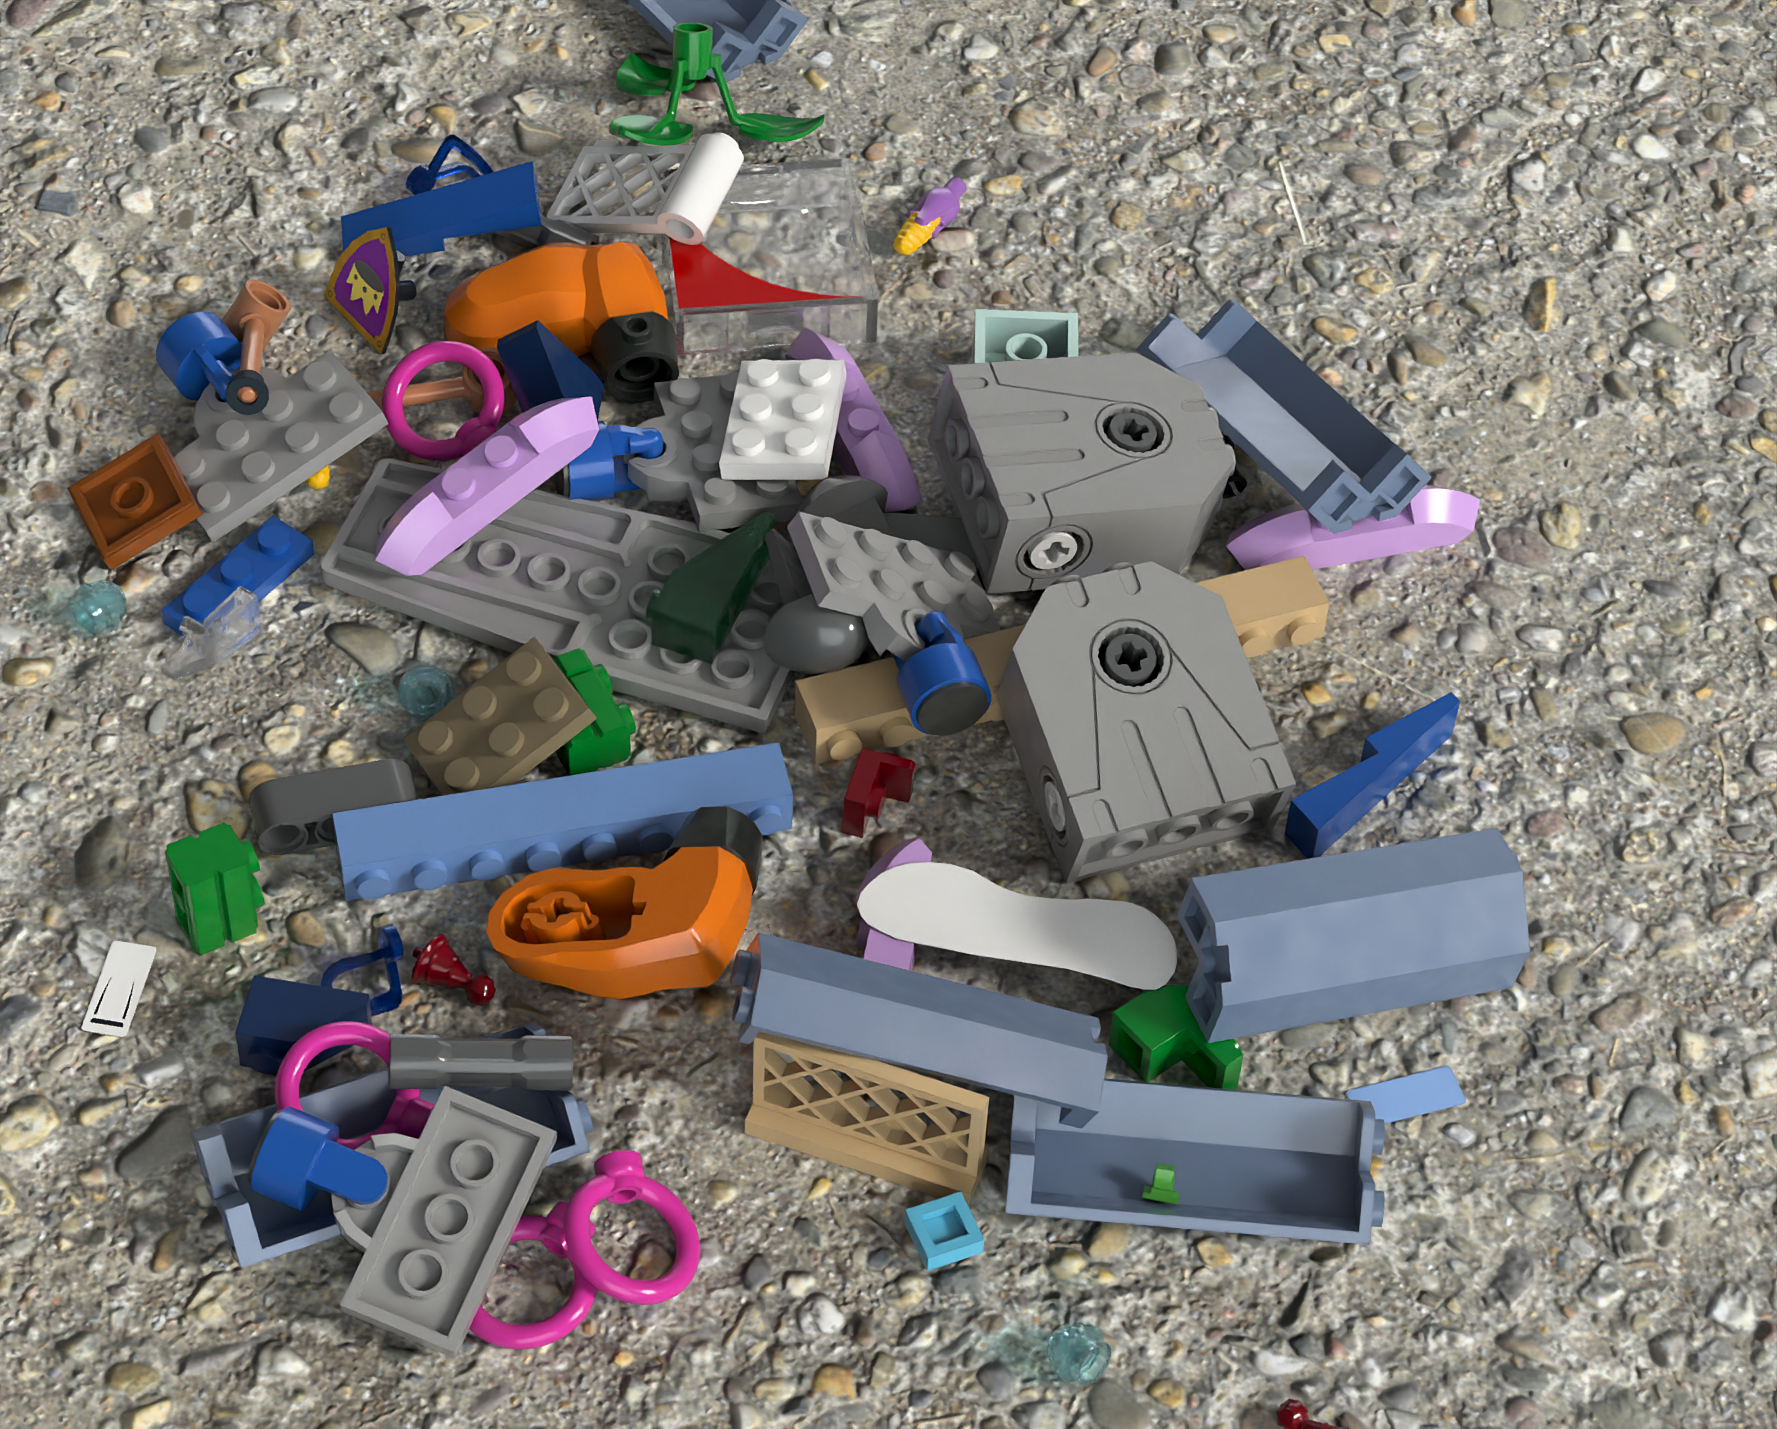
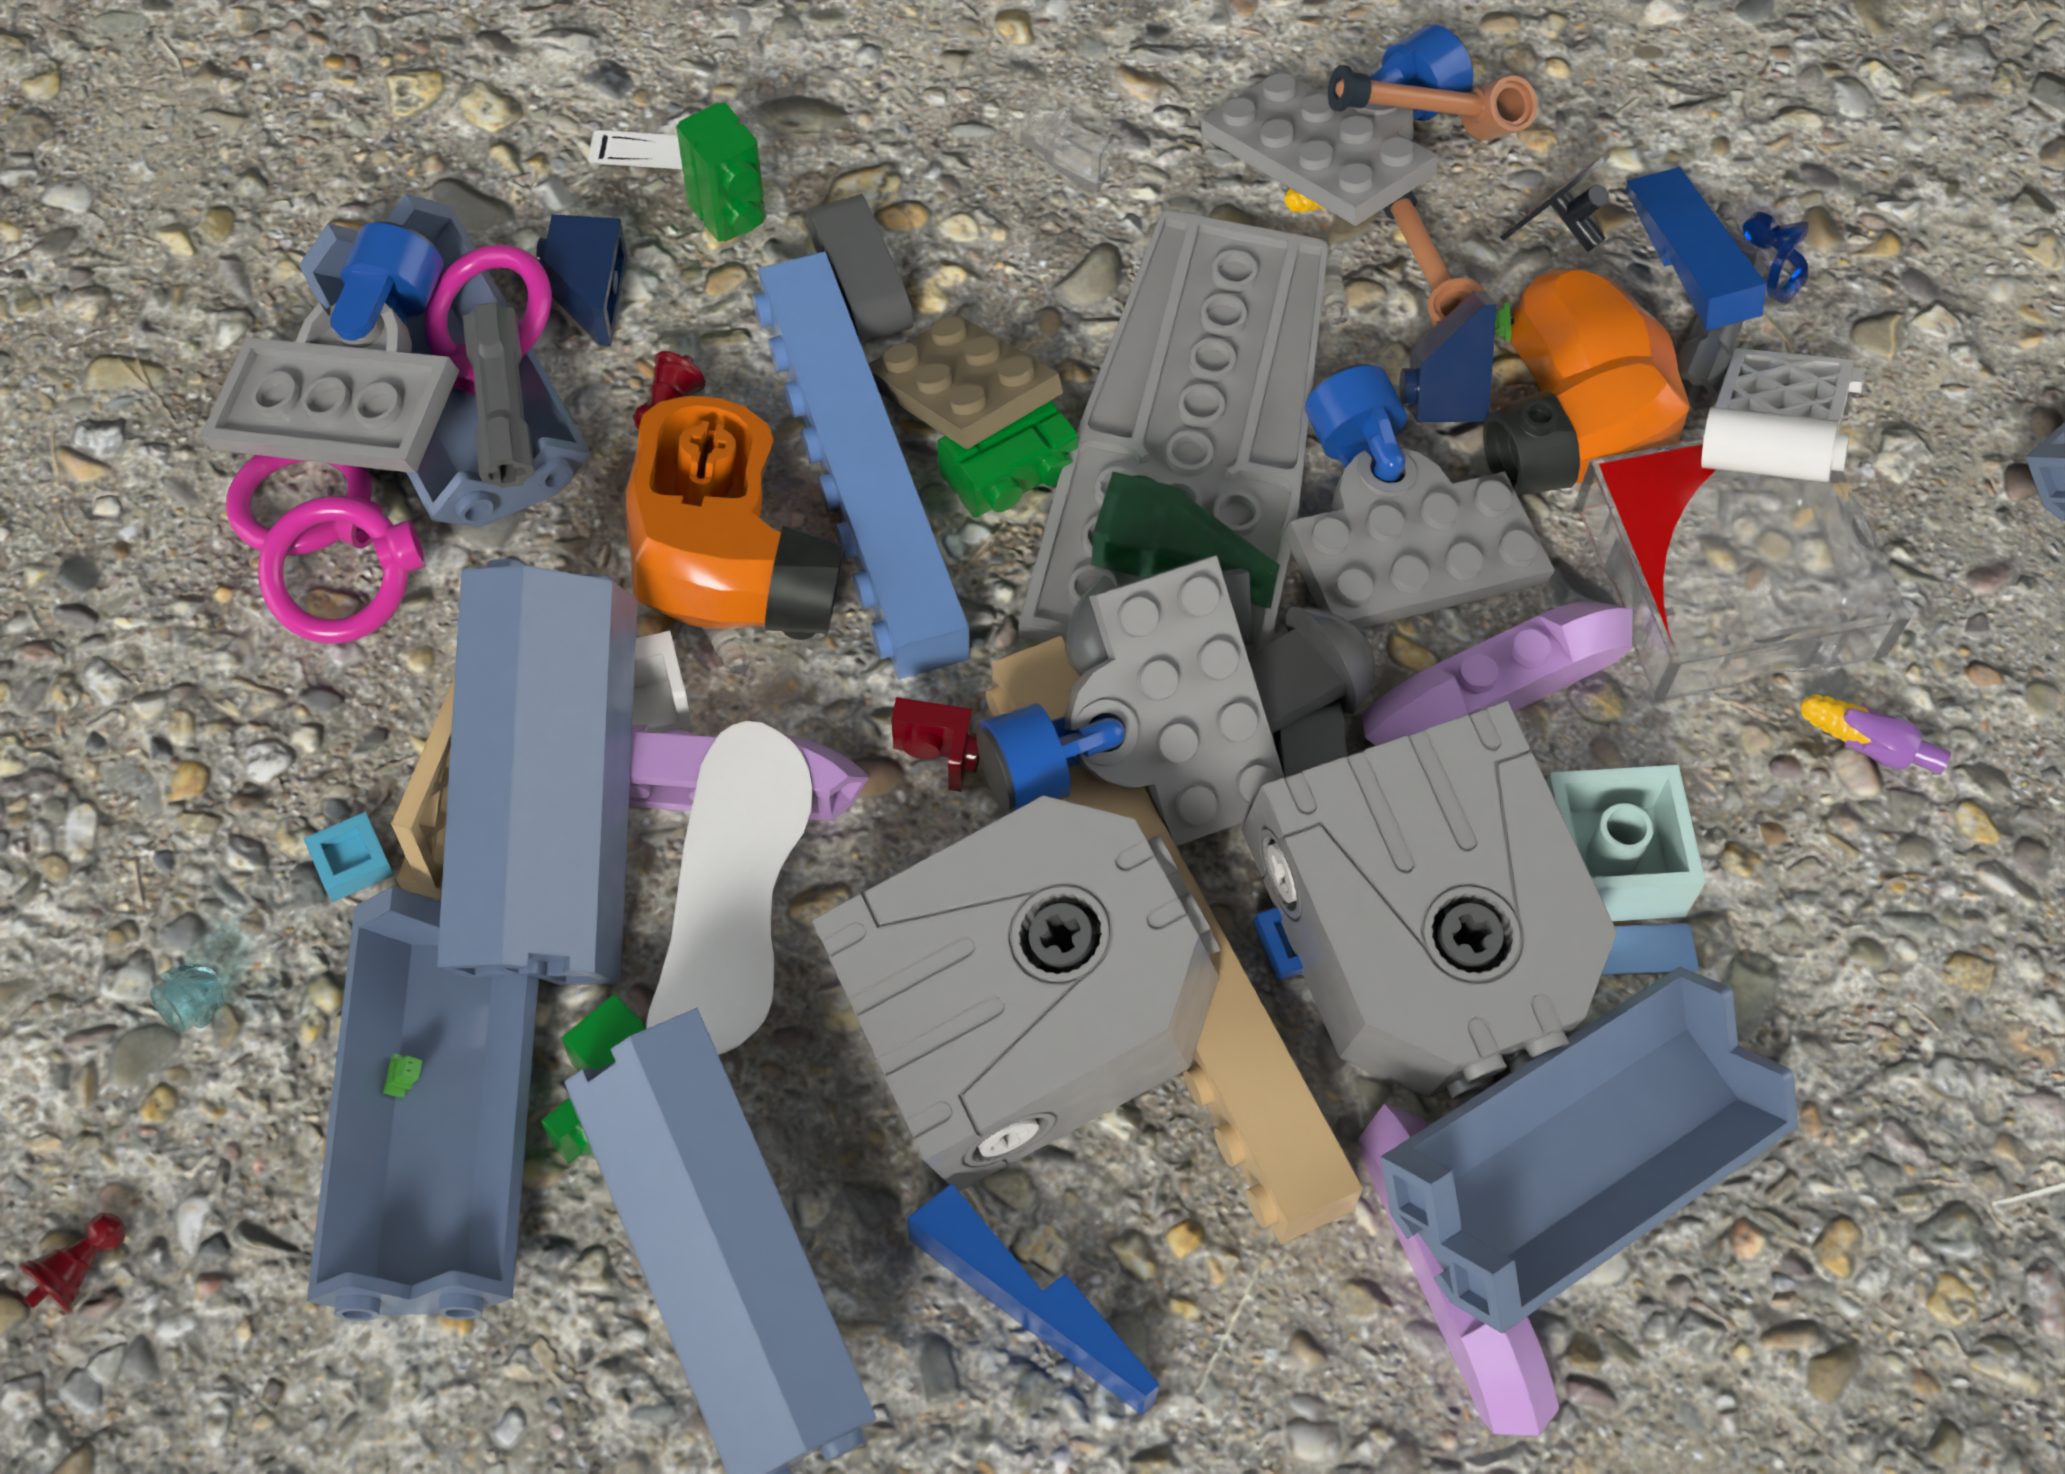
camera: 85 degrees right, 10 degrees up
(99, 606) = (1087, 54): clear light blue plate -> none
(134, 501) = (1226, 57): dark orange tile -> none
(255, 564) = (1159, 162): blue plate -> none
(391, 951) = (663, 320): clear blue piece -> none
(425, 691) = (1020, 321): clear light blue plate -> none
(471, 432) = (1370, 313): dark pink piece -> none
(486, 483) = (1274, 309): lavender brick -> none
(690, 60) = (2002, 419): green plant -> none
(783, 420) = (1444, 581): white plate -> none
(1412, 1094) = (560, 1361): light blue sticker -> none

